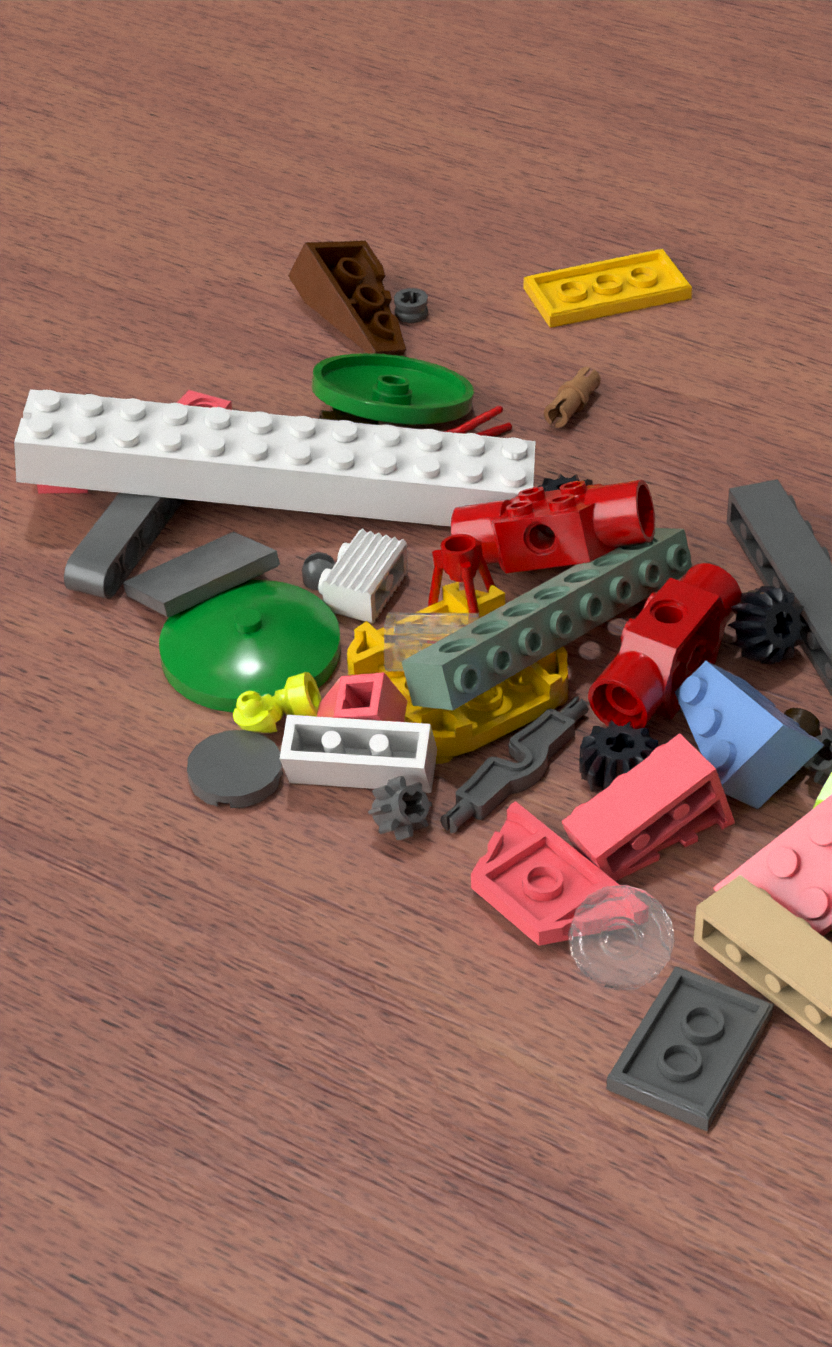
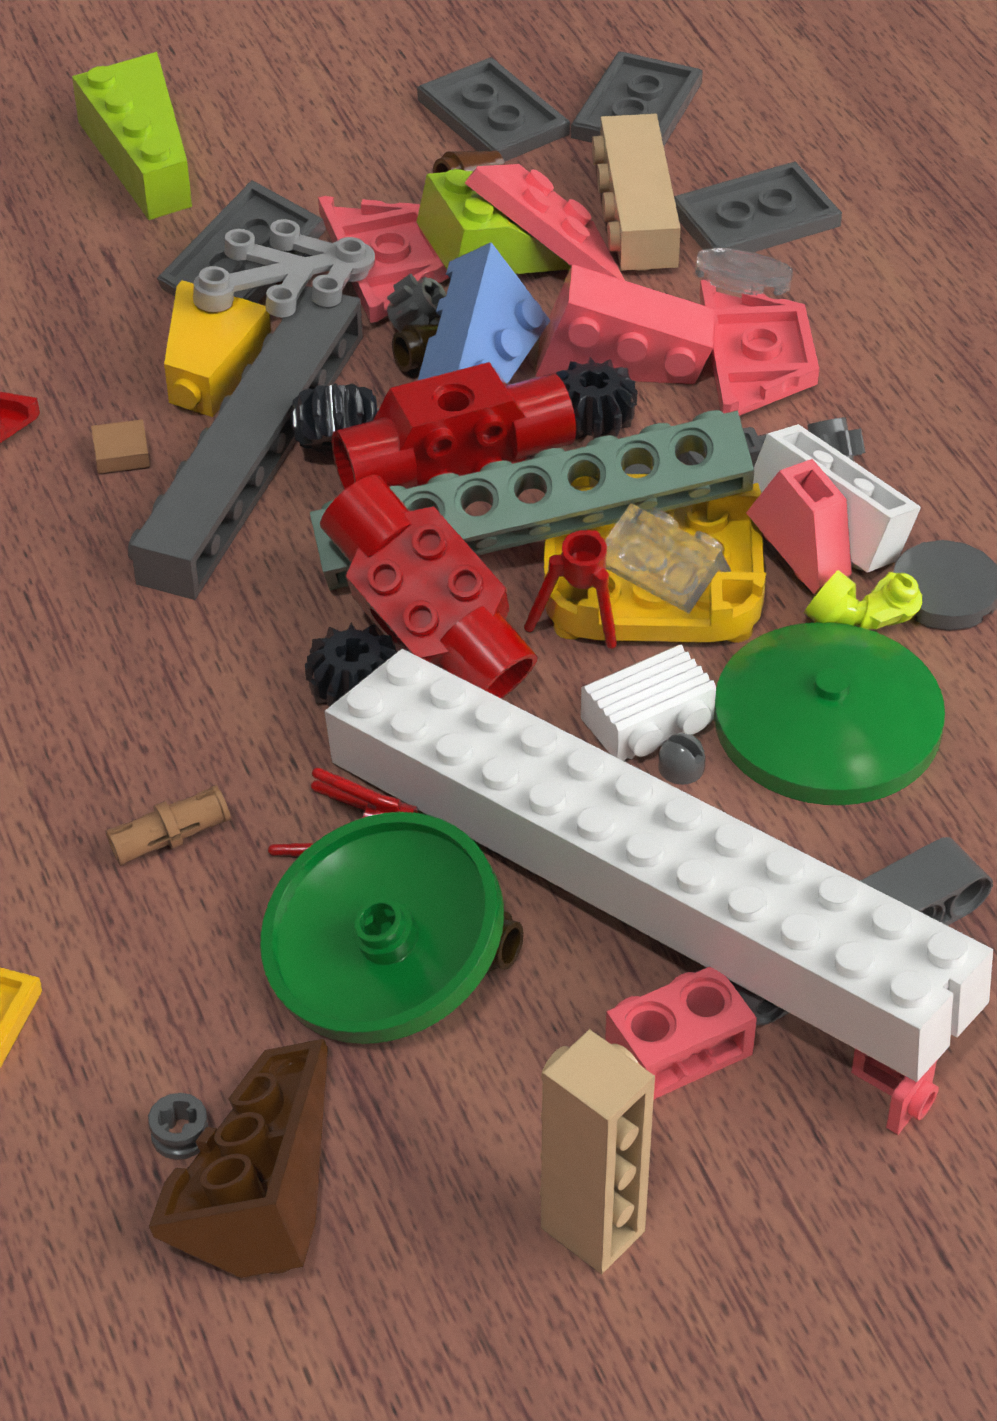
camera: 145 degrees left, 5 degrees up
(166, 301) = (595, 1148): none -> tan brick
(201, 574) = (831, 799): dark grey tile -> none

